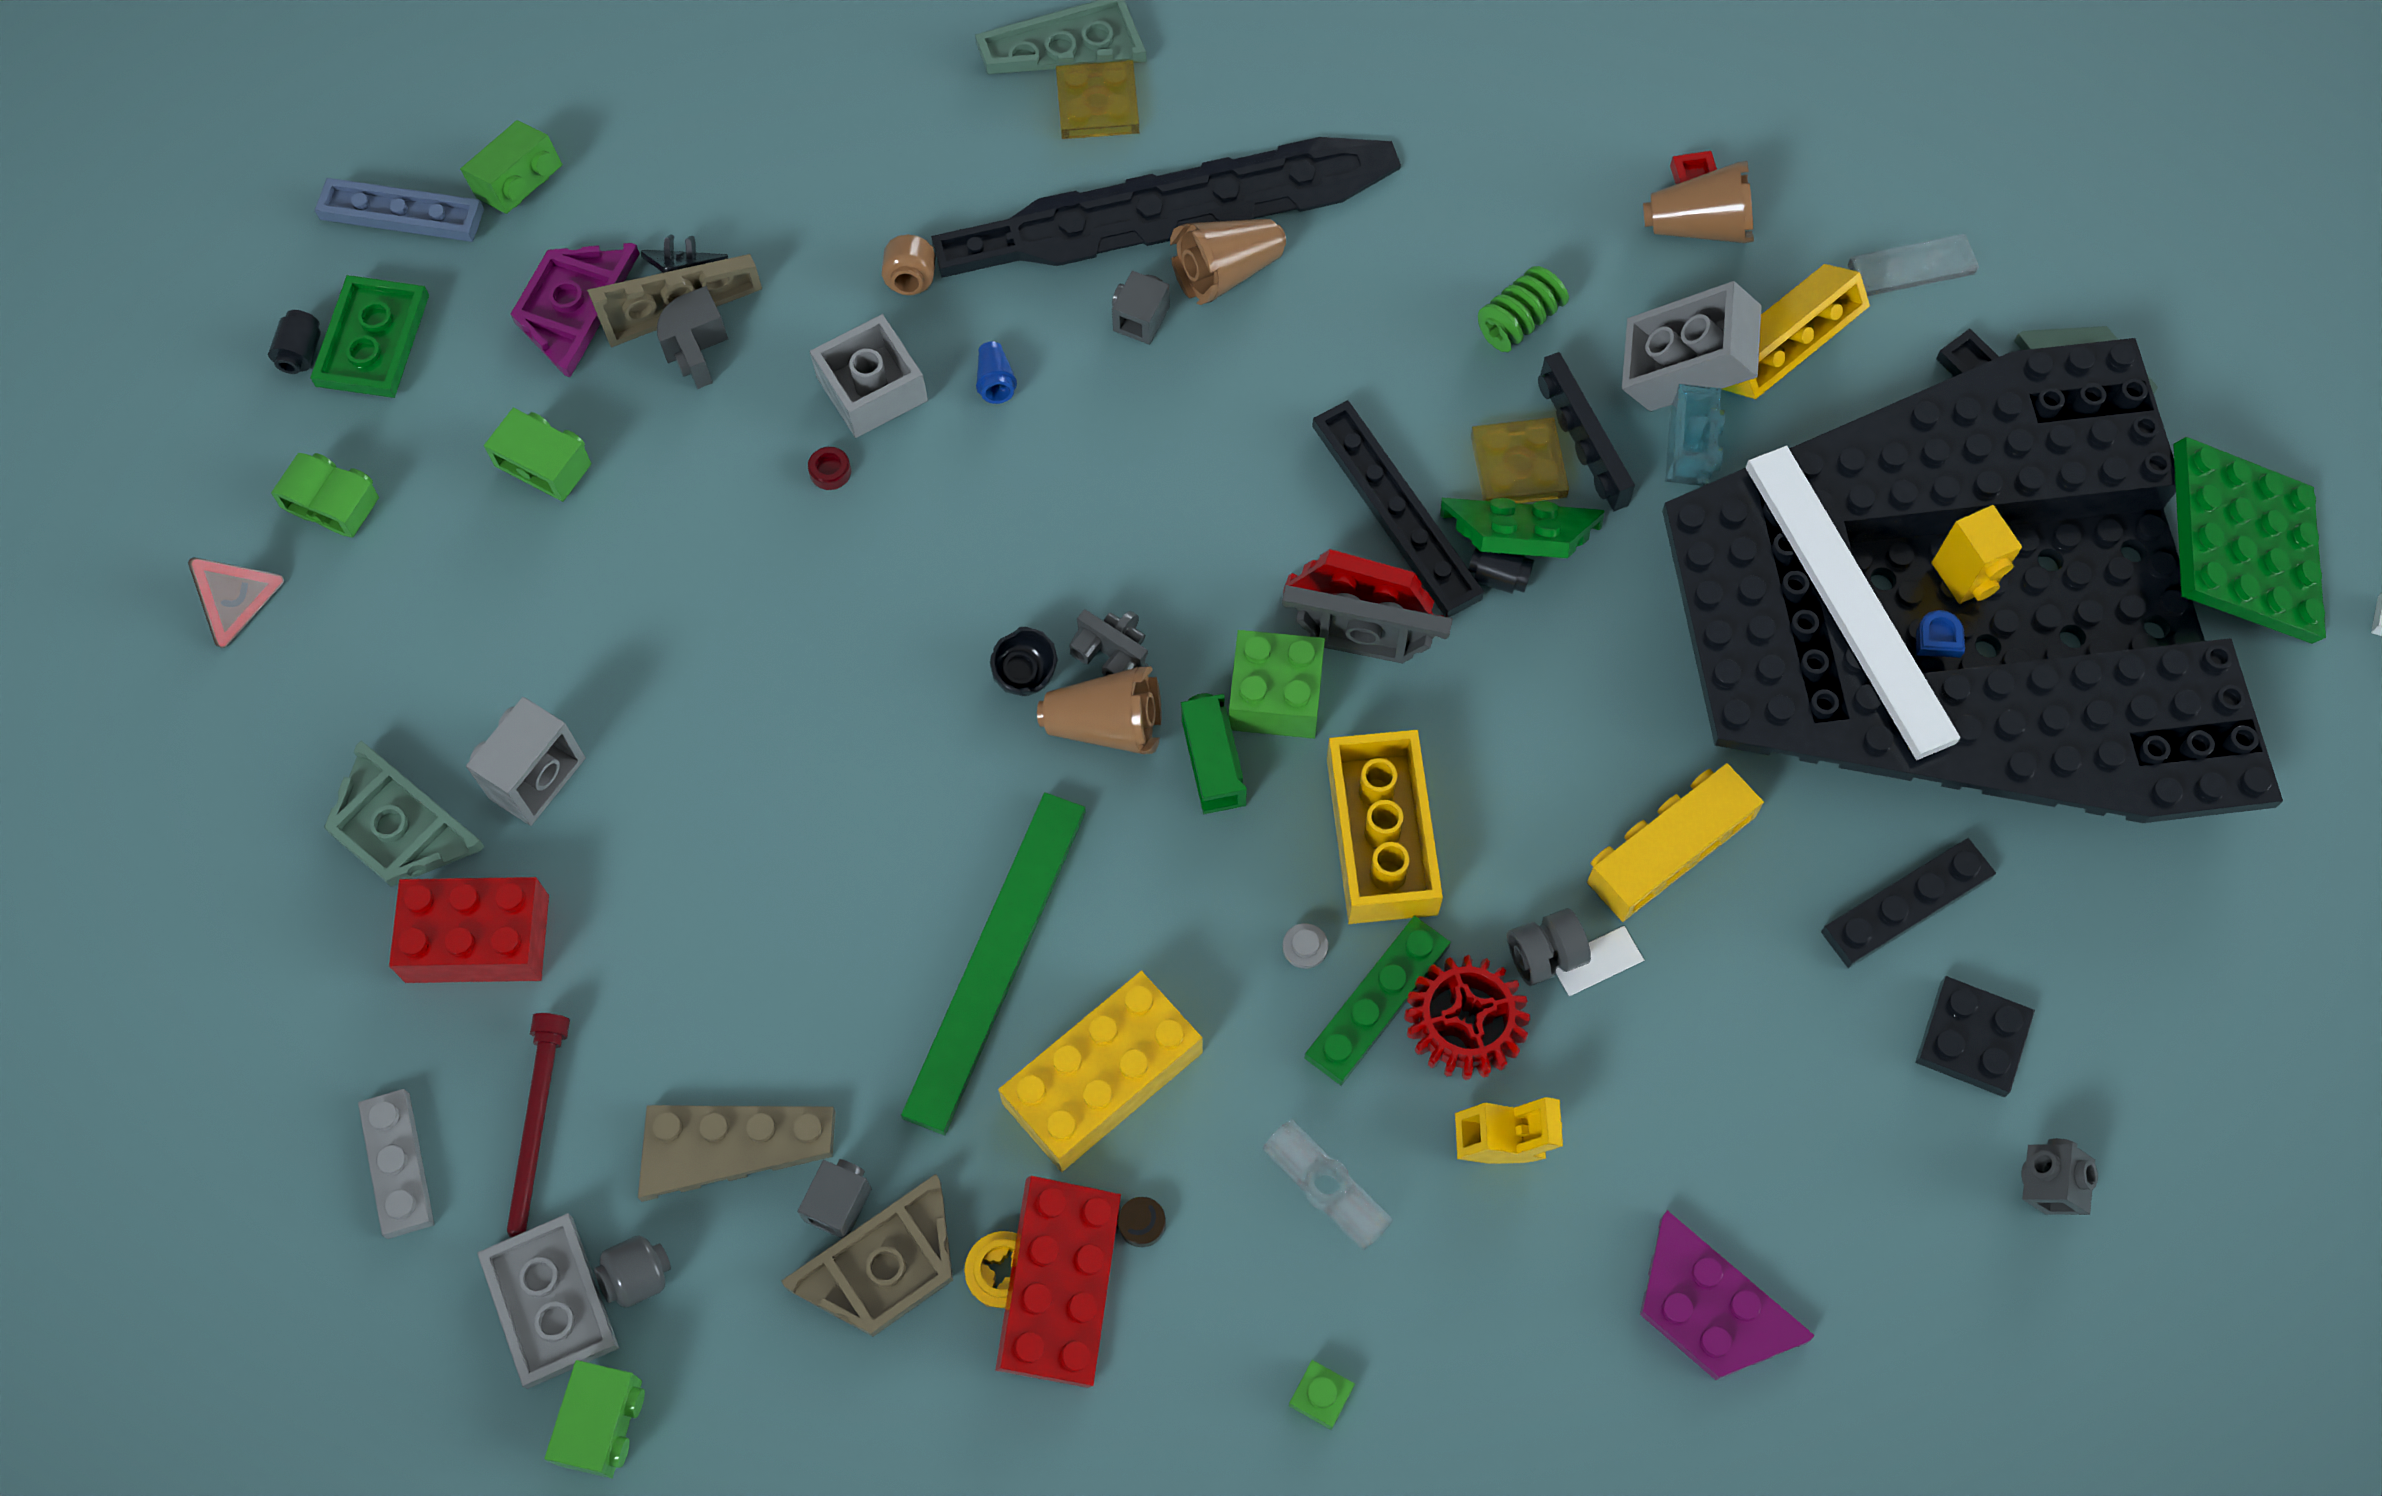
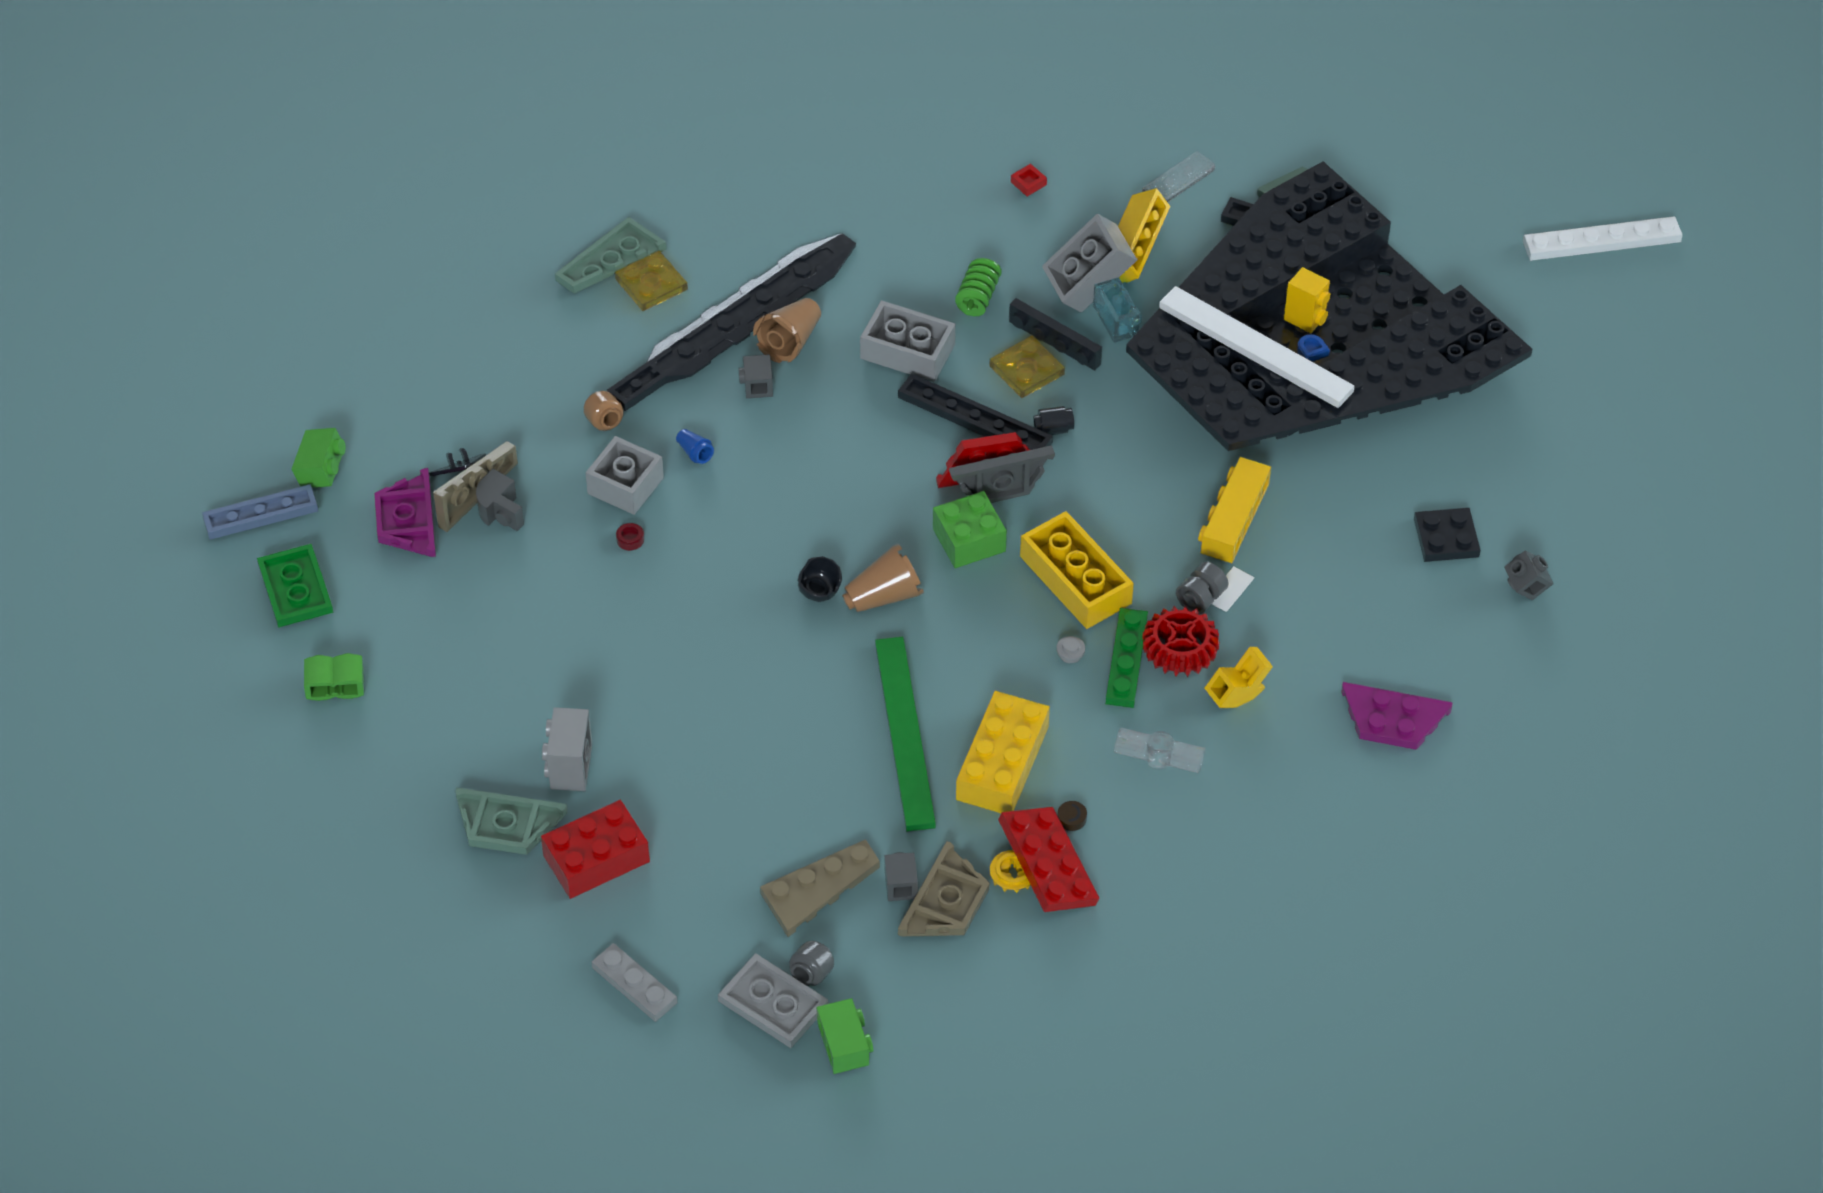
camera: 30 degrees left, 15 degrees down
(231, 595) = (317, 750): piece -> none
(295, 342) = (250, 607): black brick -> none
(538, 453) = (452, 598): bright green brick -> none
(548, 1035) = (677, 879): dark red piece -> none
(1113, 637) = (859, 549): dark grey hips -> none
(1213, 753) = (957, 579): green window -> none
(1321, 1394) = (1221, 848): bright green plate -> none
(1371, 348) = (907, 341): none -> light grey brick
(1522, 528) = (1050, 396): green wing -> none
(1705, 207) = (1048, 192): medium nougat cone -> none
(1908, 902) = (1374, 488): black plate -> none
(2248, 541) = (1441, 237): green plate -> none

